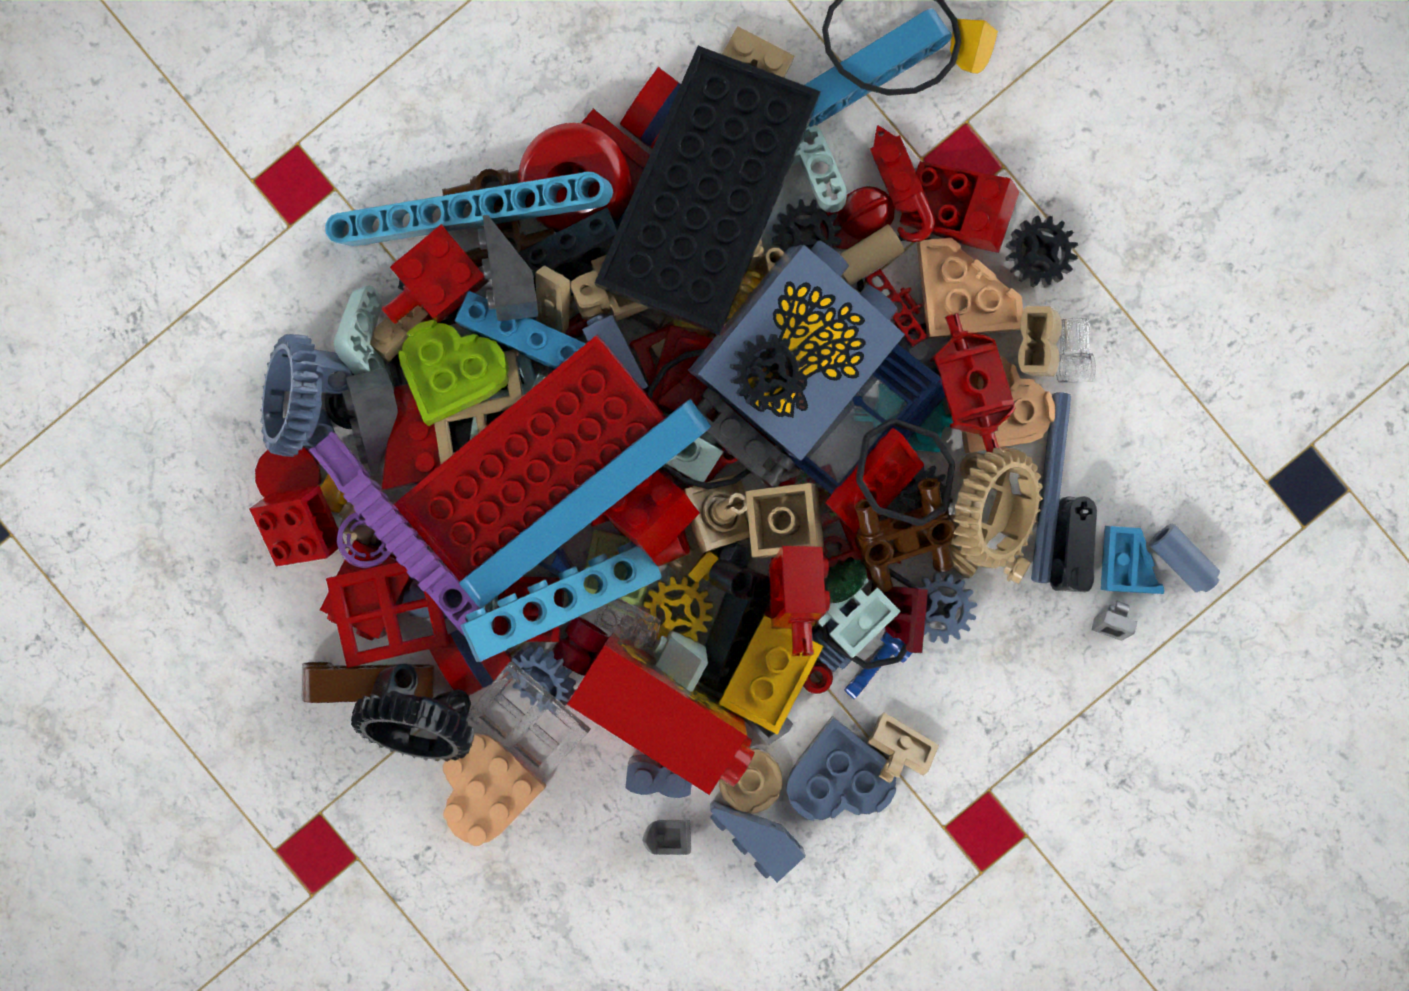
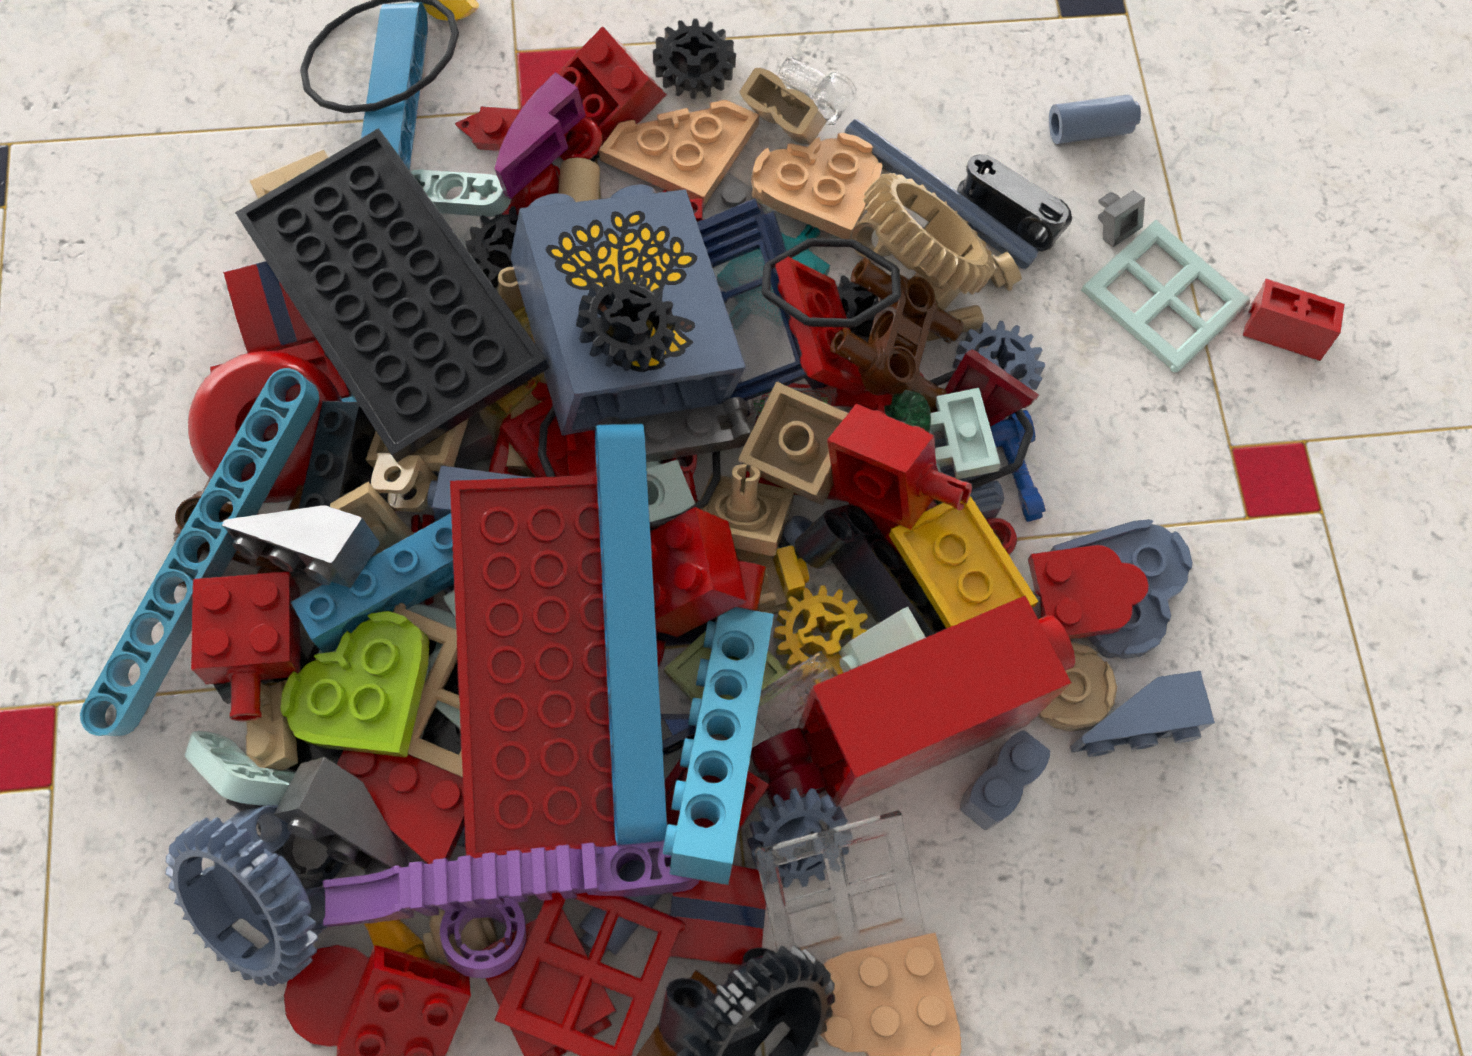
camera: 65 degrees left, 20 degrees down
(668, 837) = (1085, 821): flat silver plate -> none
(813, 756) = (1087, 589): none -> red plate
(891, 197) = (538, 134): none -> magenta slope
(903, 747) = (1131, 493): tan plate -> none
(972, 408) = (811, 191): red plate -> none
(1076, 686) = (1165, 295): none -> light aqua window
(1111, 784) = (1294, 319): none -> red hinge
(1127, 562) = (1063, 170): dark azure wing -> none

